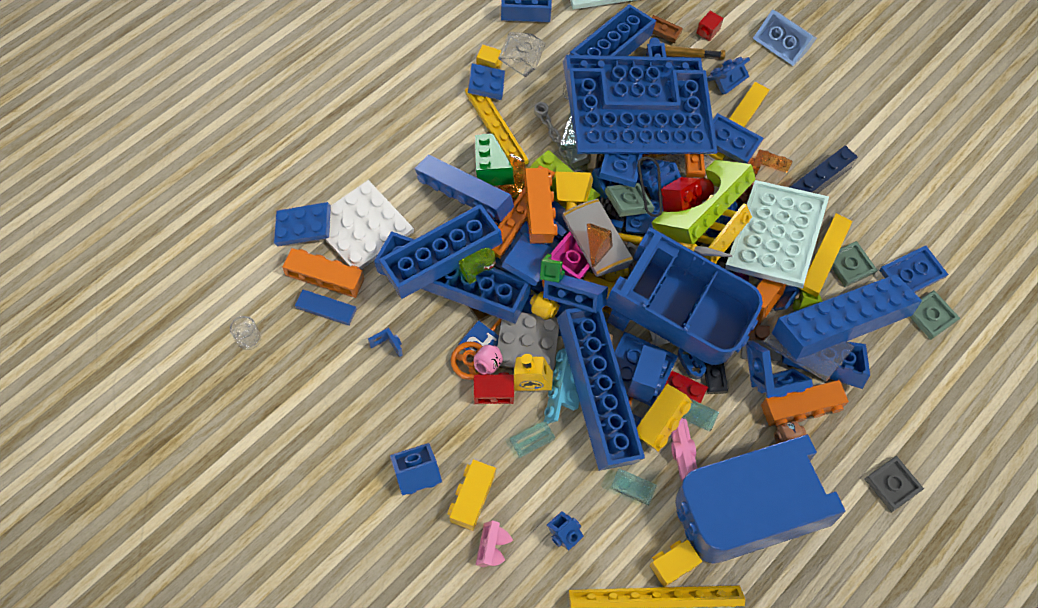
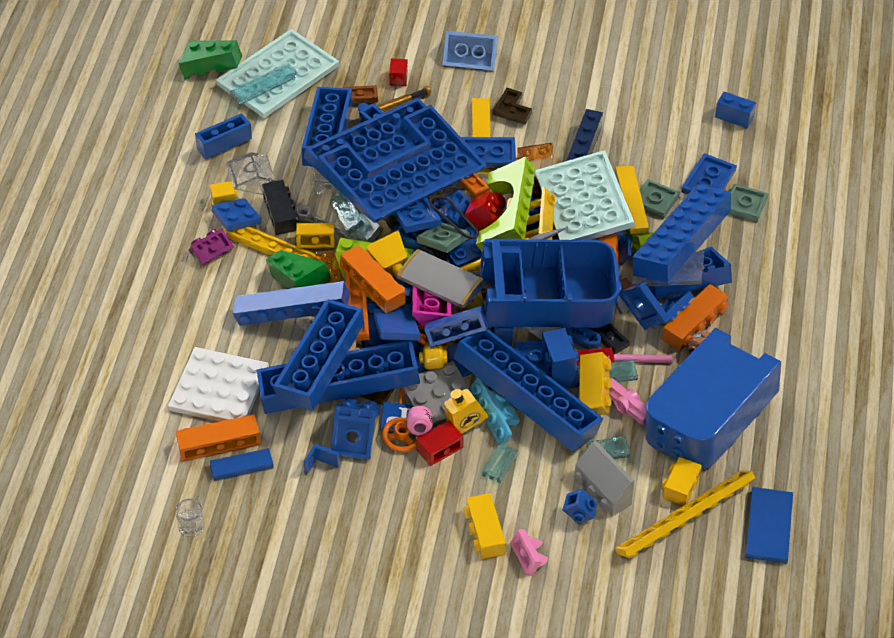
camera: 30 degrees left, 15 degrees down
(302, 224) = (166, 410): blue plate -> none
(416, 469) = (424, 534): blue slope -> none
(438, 323) = (358, 418): none -> blue bracket
(446, 98) = (212, 246): none -> magenta bracket
(476, 263) = (356, 348): clear neon green leg -> none
(525, 94) = (280, 207): none -> black brick
(533, 135) = (315, 235): none -> yellow brick
(551, 269) = (425, 317): green panel -> none
(599, 242) = (446, 276): clear orange slope -> none
(604, 518) = (604, 479): none -> light grey slope
(729, 414) = (643, 358): none -> bright pink bar
(730, 74) = (448, 101): blue bracket -> none
(780, 108) = (509, 107): none -> dark brown plate
(894, 484) = (803, 337): dark grey tile -> none
(985, 218) = (735, 109): none -> blue brick

